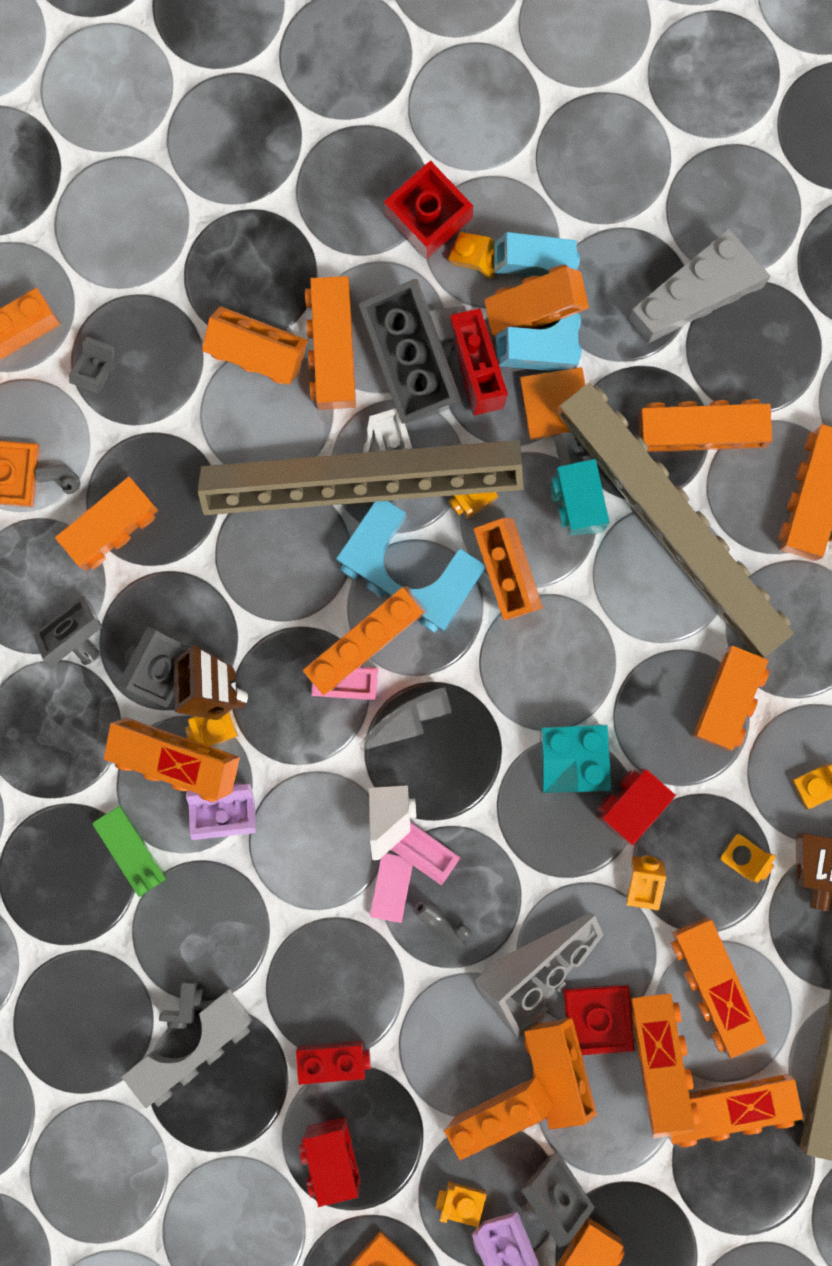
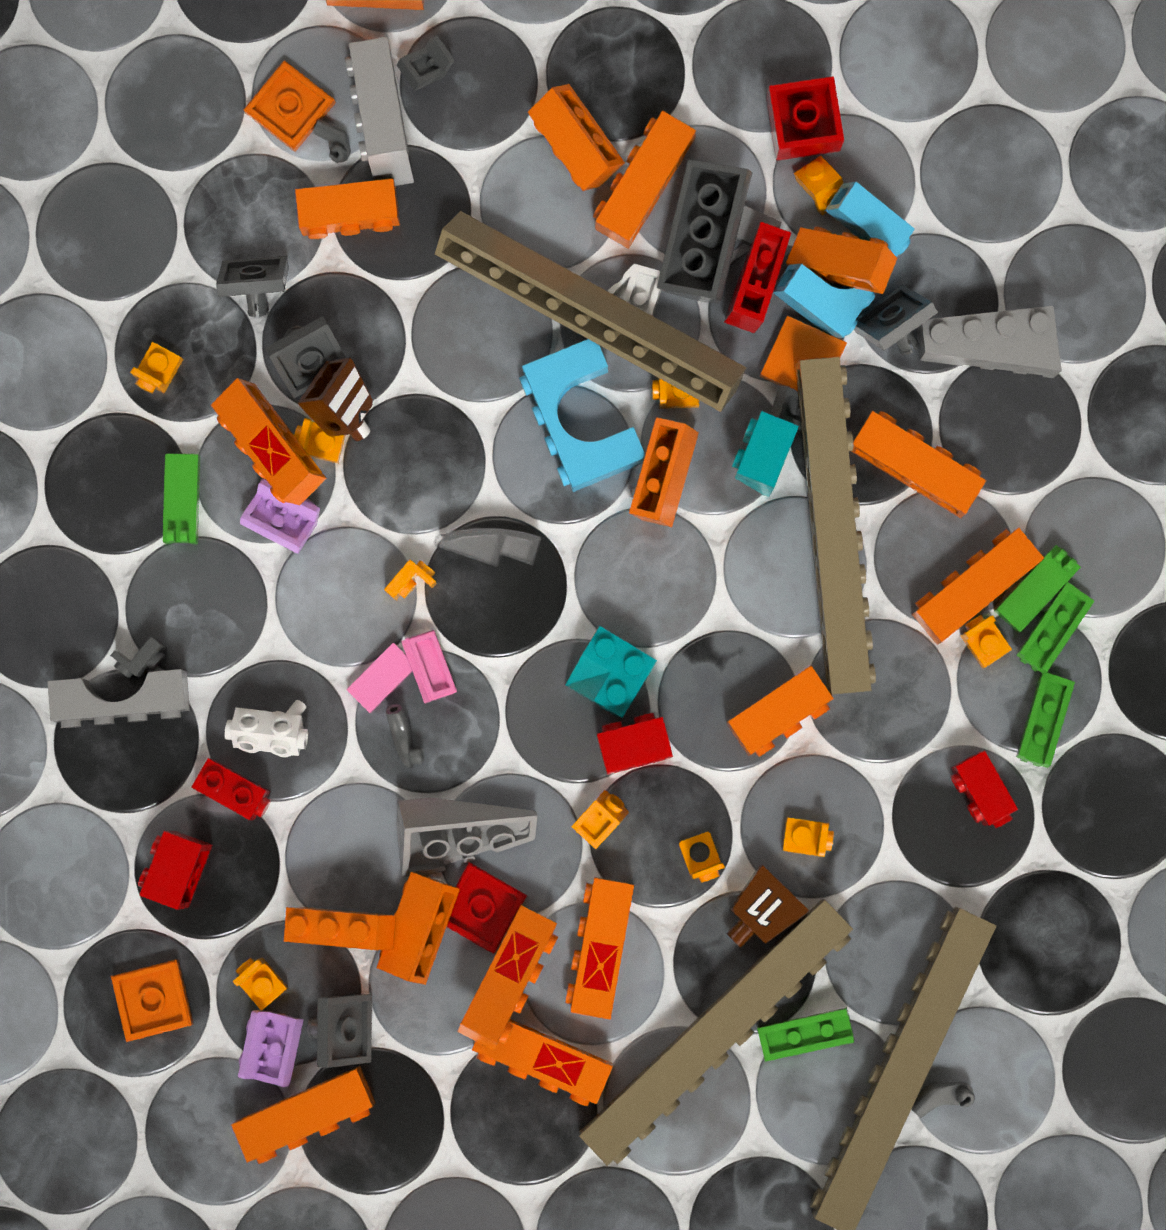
camera: 30 degrees right, 0 degrees up
(38, 758) = (156, 369): none -> light orange bracket
(81, 428) = (379, 109): none -> light grey wedge
(331, 994) = (268, 731): none -> white brick
(358, 798) = (404, 581): none -> light orange bracket
(359, 685) = (459, 477): bright pink tile -> none
(365, 640) = (499, 451): orange brick -> none
(389, 817) = (418, 615): white slope -> none
(610, 322) = (895, 319): none -> dark grey tile

